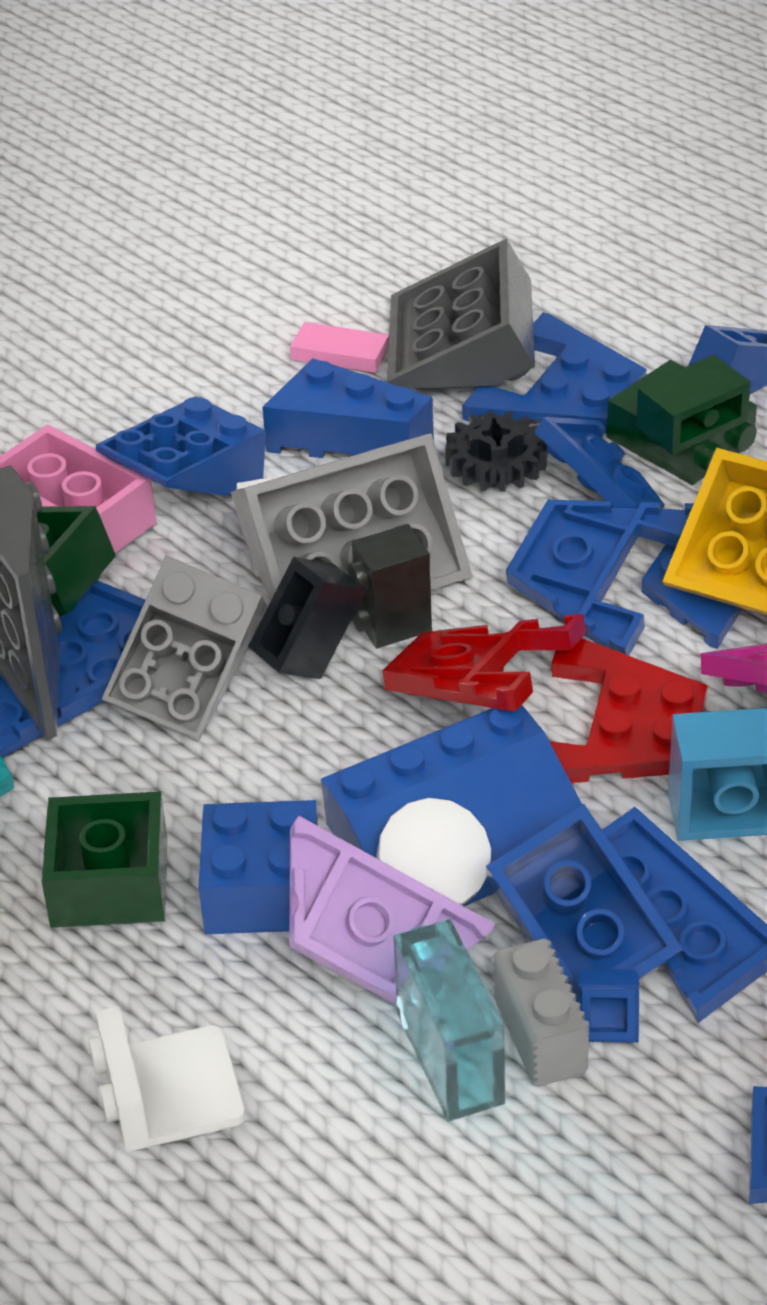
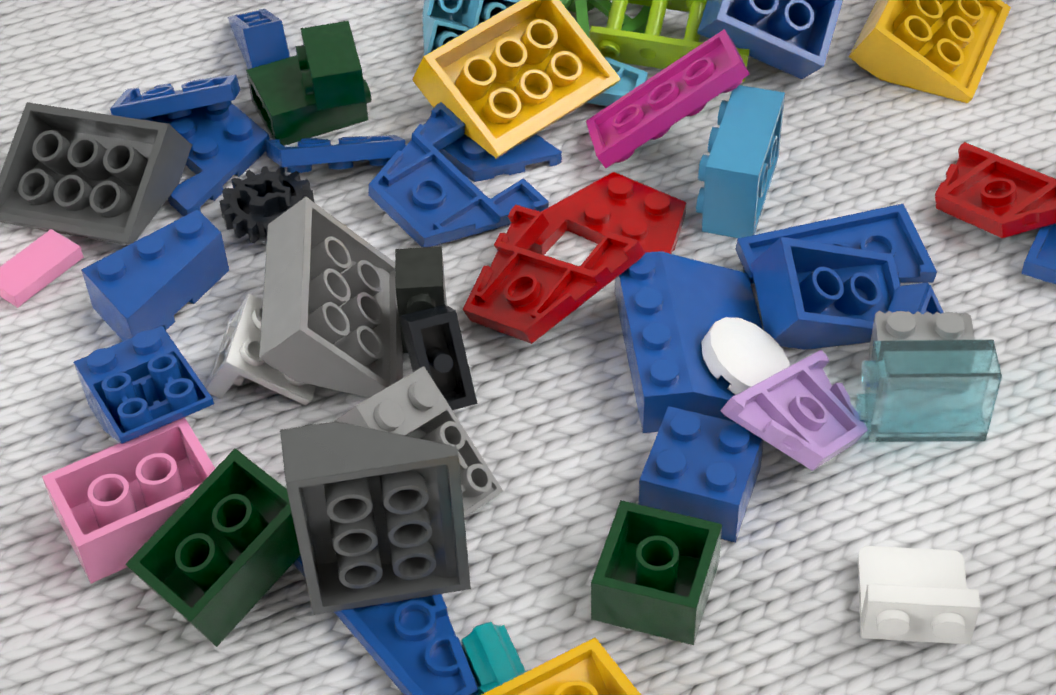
camera: 70 degrees left, 5 degrees up
(596, 331) = (210, 92): none -> blue wing

